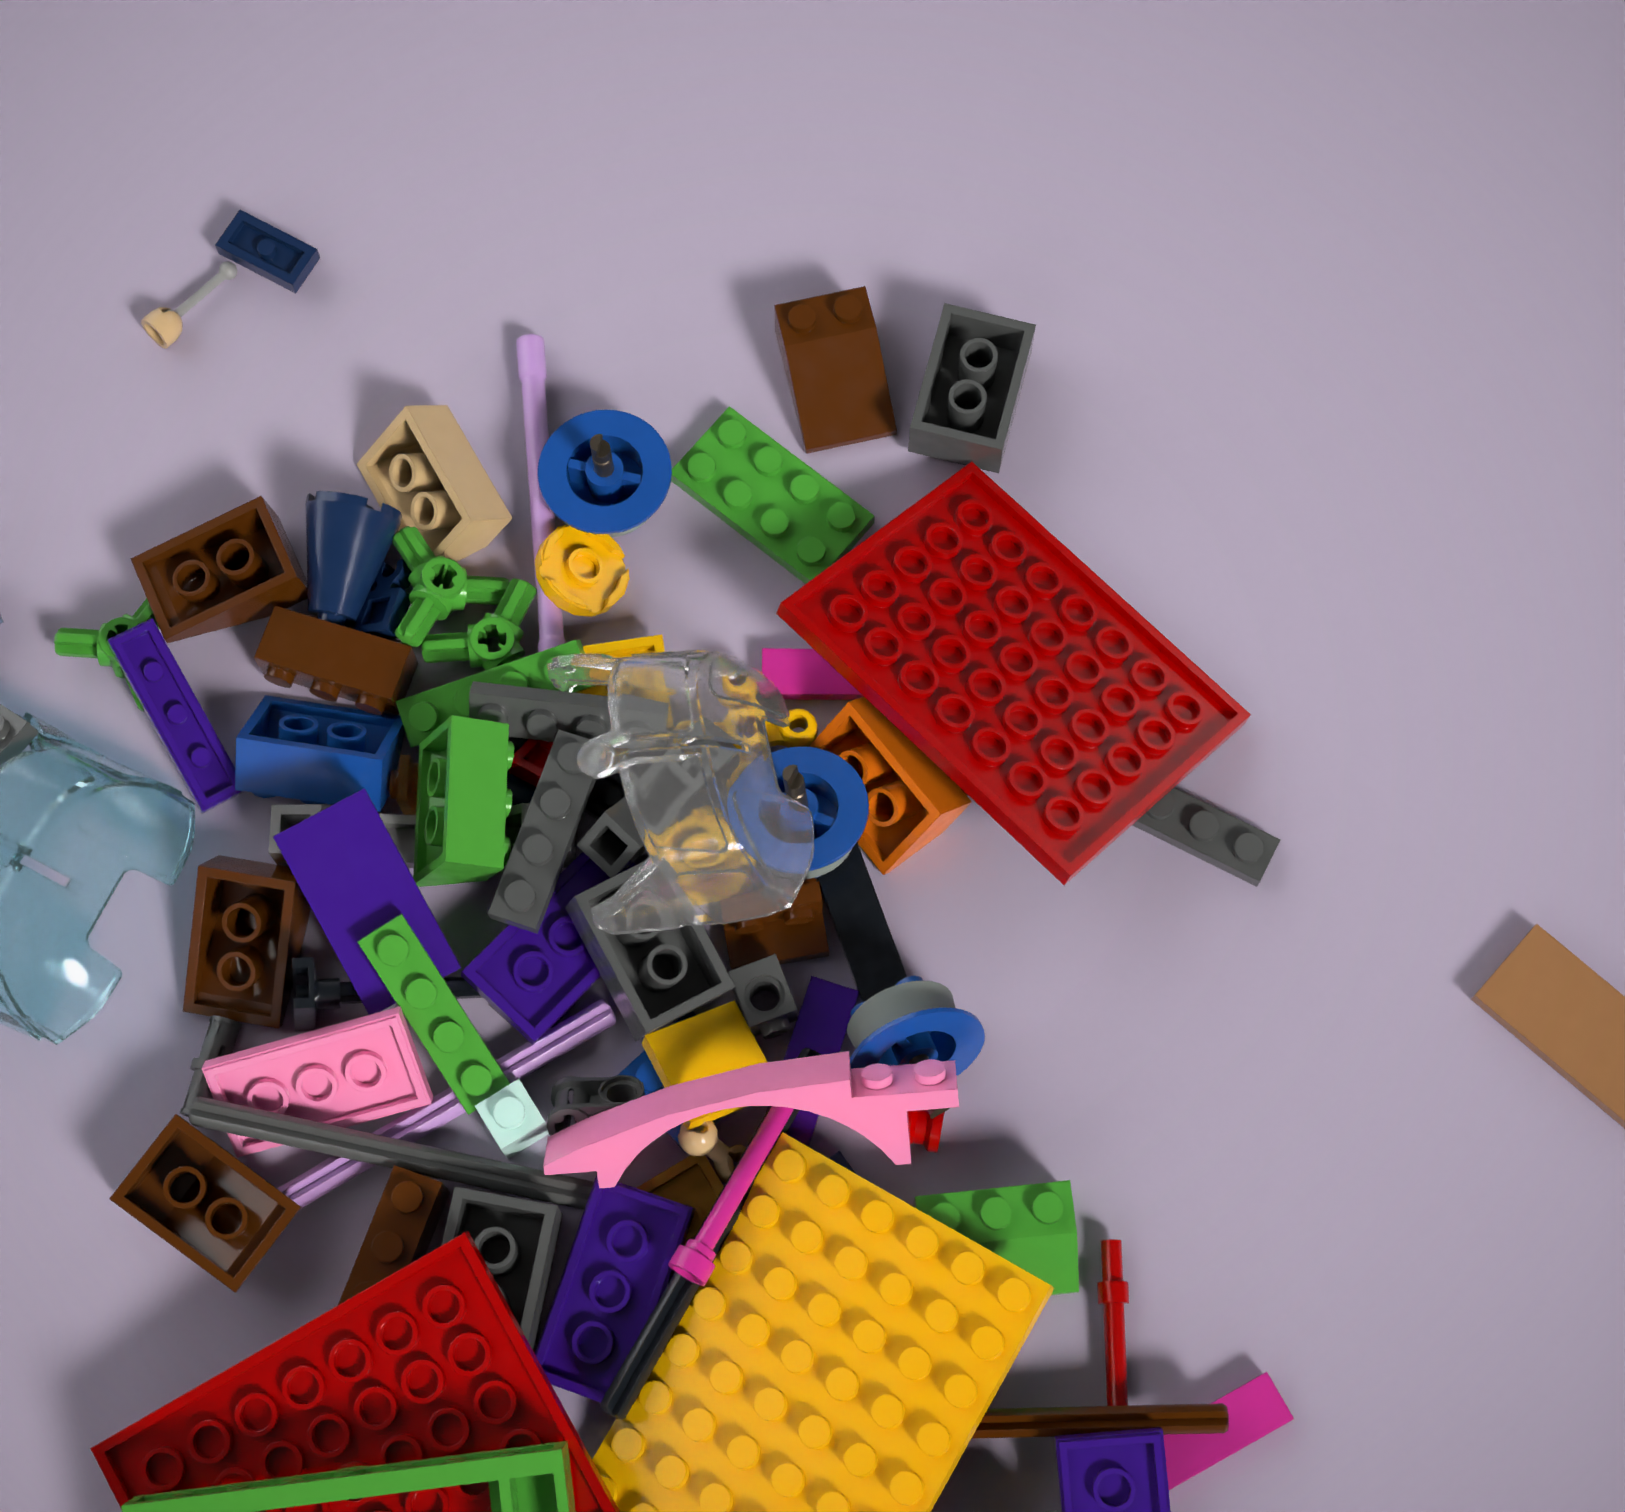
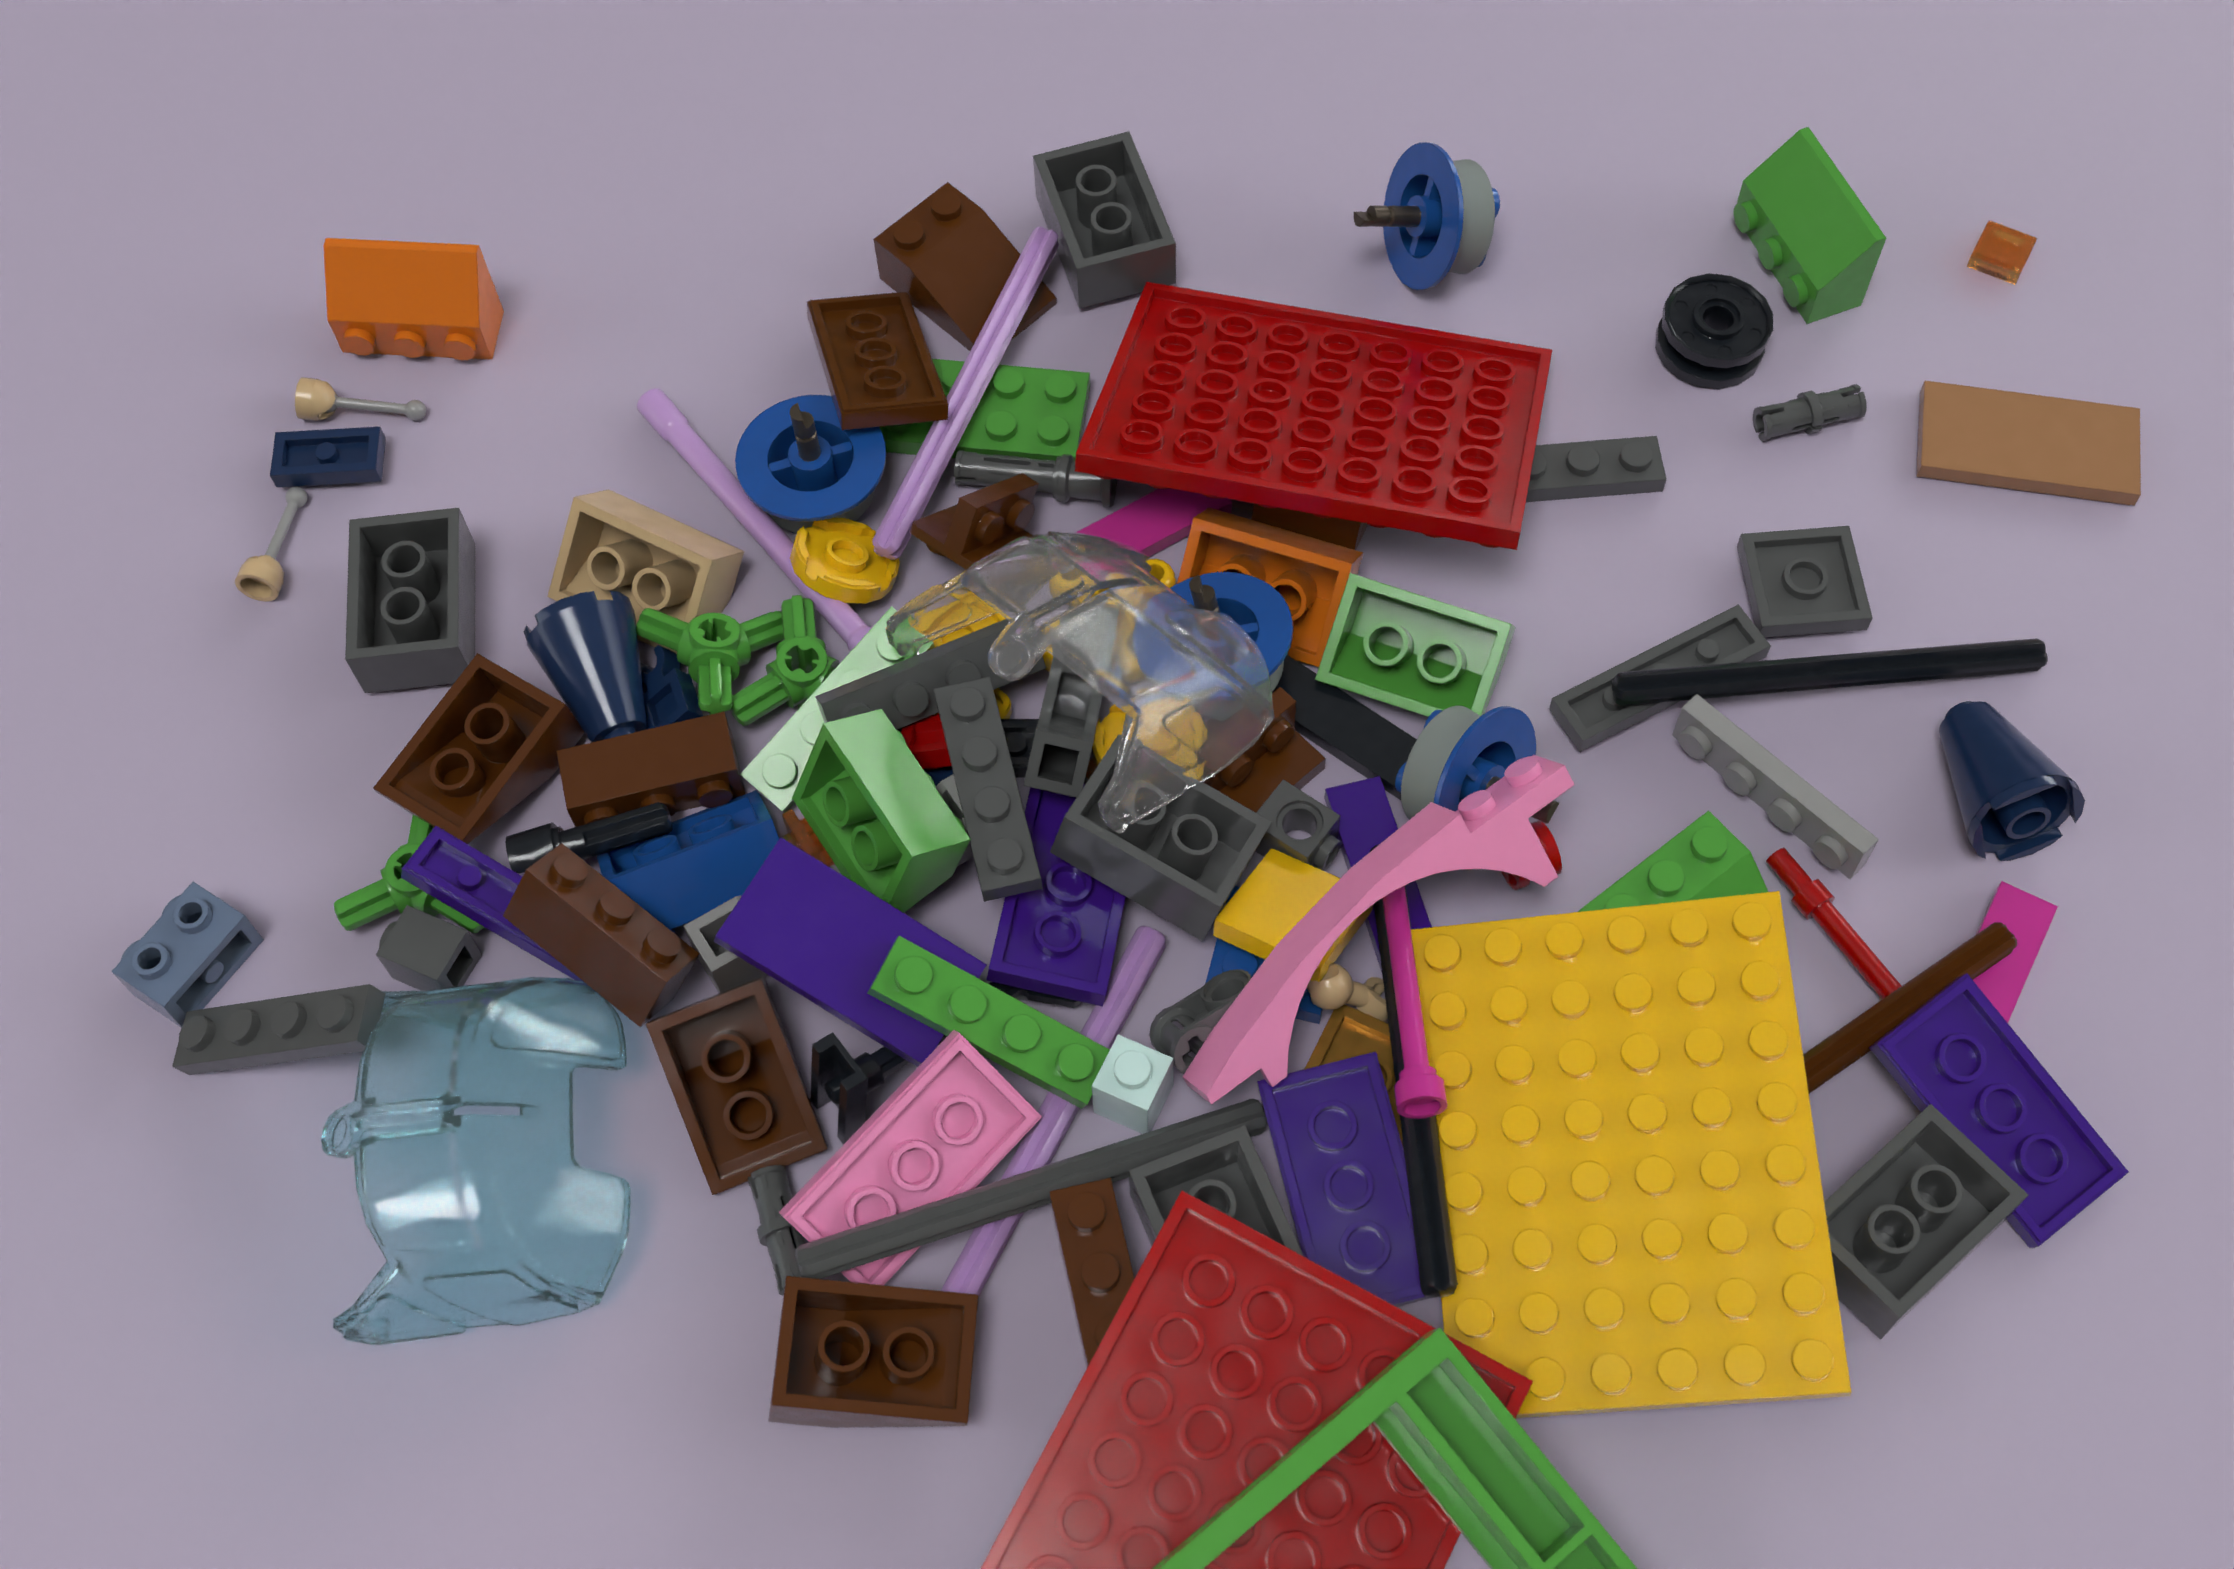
camera: 30 degrees left, 10 degrees down
(99, 708) = (427, 951): none -> dark grey brick
(213, 774) = (600, 934): none -> reddish brown brick
(228, 681) = (589, 839): none -> black piece
(250, 414) = (410, 599): none -> dark grey brick
(289, 196) = (318, 401): none -> hinge
(400, 154) = (411, 299): none -> orange slope
(698, 610) = (980, 521): none -> reddish brown bracket
(709, 413) = (876, 361): none -> reddish brown tile
(756, 565) = (1053, 476): none -> dark grey pin
(763, 480) = (965, 394): none -> lavender axle
(953, 908) = (1413, 649): none -> bright green slope
(1130, 1044) = (1589, 708): none -> dark grey plate
(1150, 1207) = (1772, 785): none -> light grey plate
(1231, 545) = (1434, 216): none -> blue piece
(1262, 1124) = (1828, 671): none -> black axle
(1303, 1035) = (1804, 581): none -> dark grey plate
(1323, 1296) = (2005, 784): none -> dark blue cone
(1412, 754) = (1714, 331): none -> black wheel
(1421, 893) = (1809, 412): none -> dark grey pin
(1533, 736) = (1810, 228): none -> bright green slope

